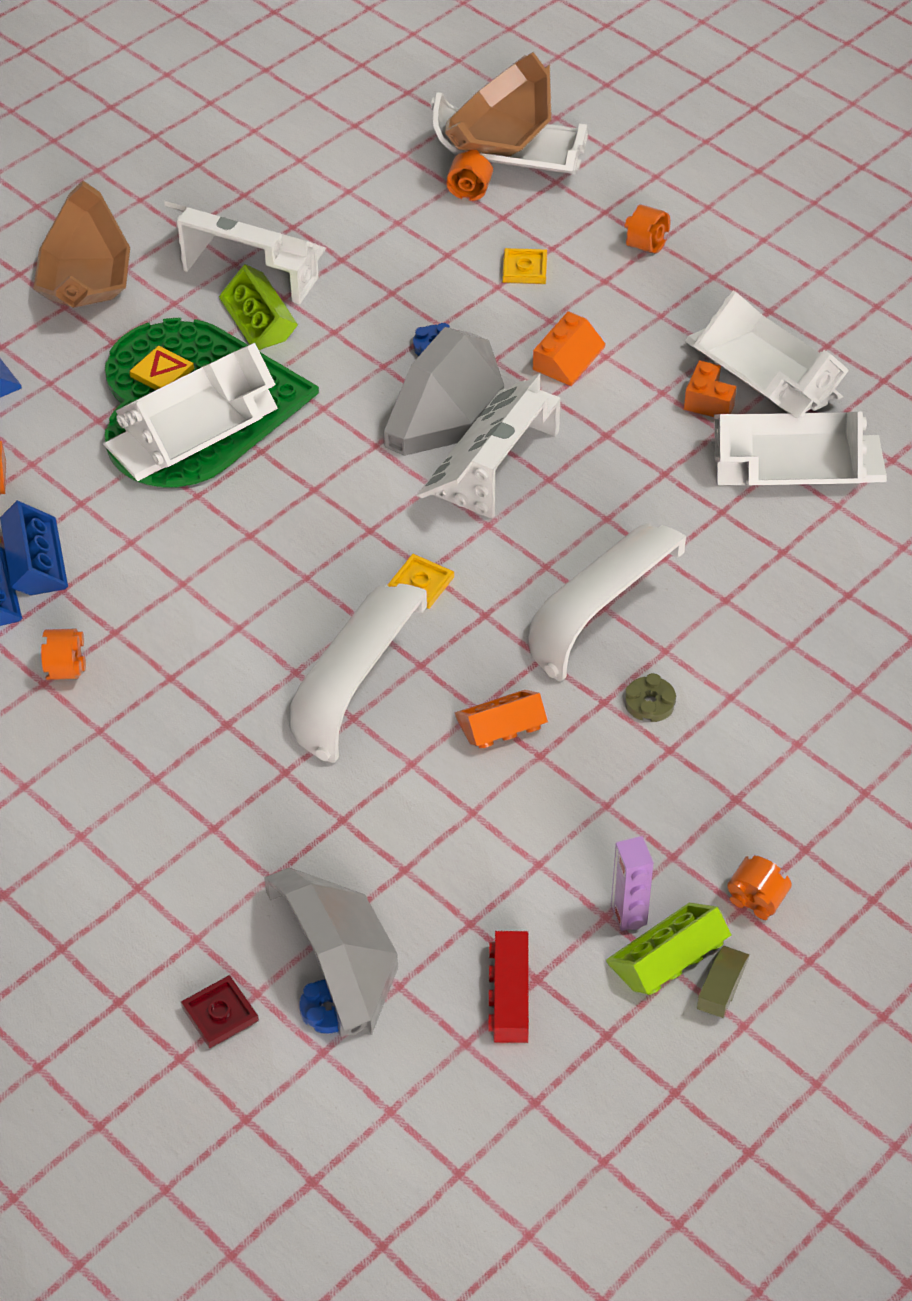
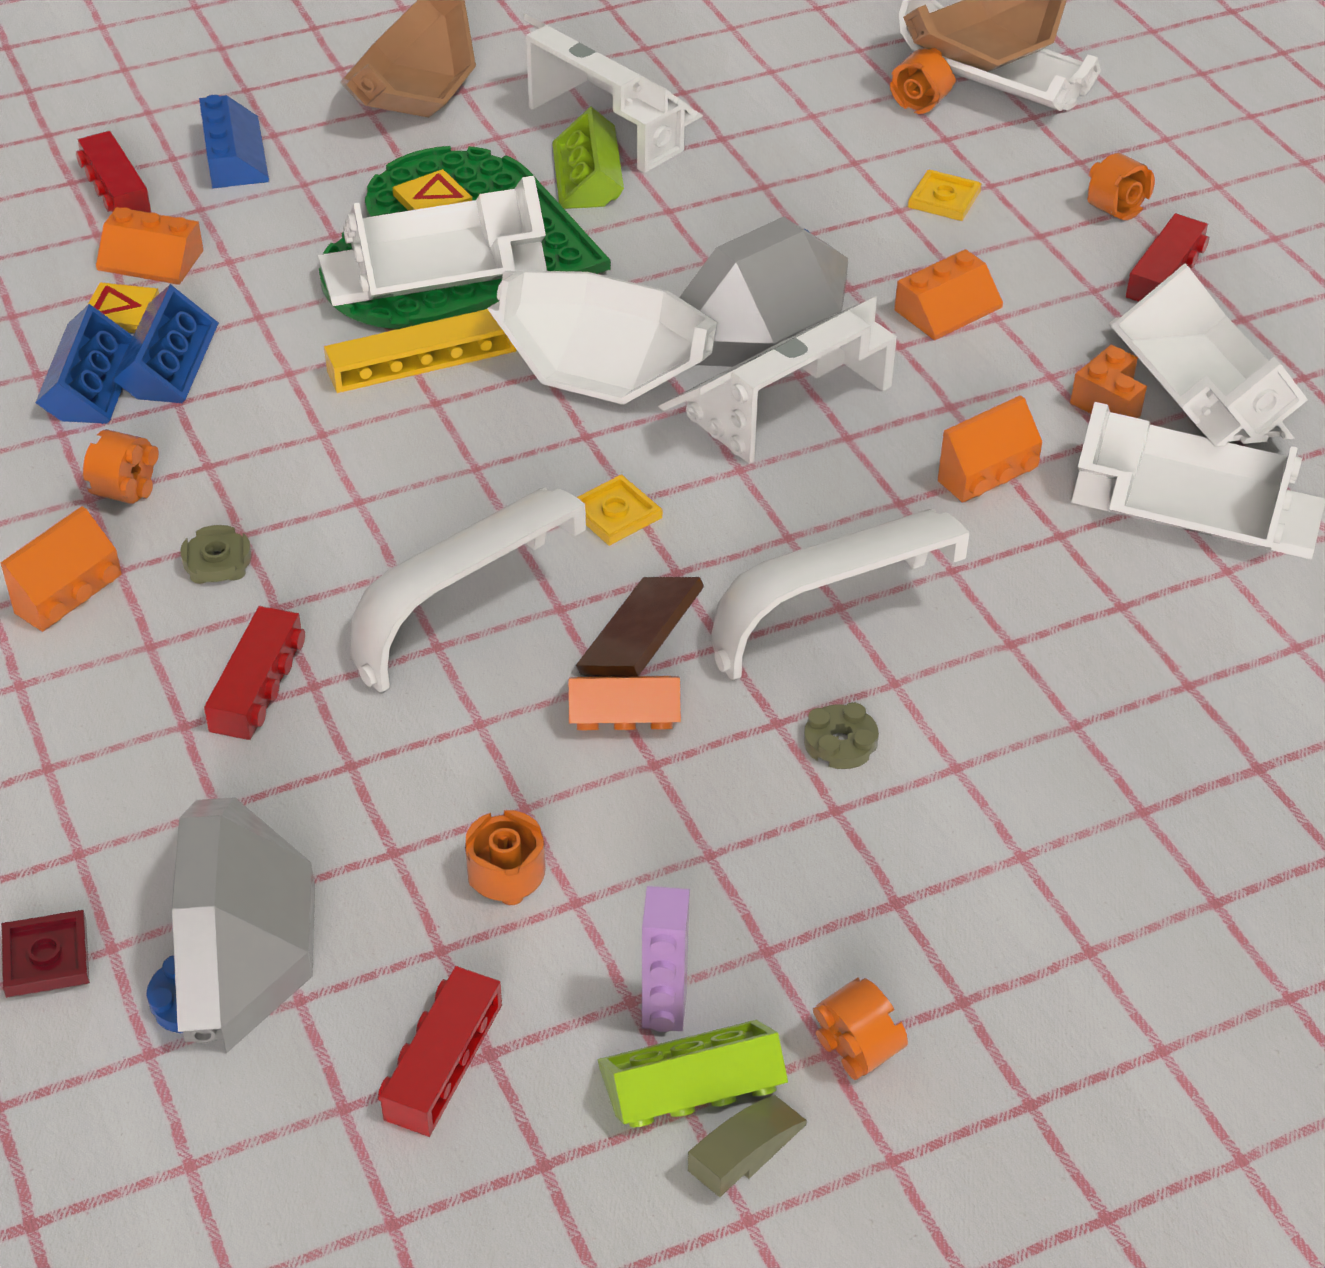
camera: 20 degrees right, 5 degrees down
(69, 745) = (60, 569): none -> orange slope
(168, 709) = (204, 566): none -> olive plate
(219, 497) = (415, 350): none -> yellow brick
(244, 776) = (254, 673): none -> red brick
(354, 450) = (600, 332): none -> white panel
(484, 849) = (505, 856): none -> orange brick
(486, 662) = (640, 626): none -> reddish brown tile
(654, 464) = (989, 449): none -> orange slope
(702, 280) = (1174, 246): none -> red brick

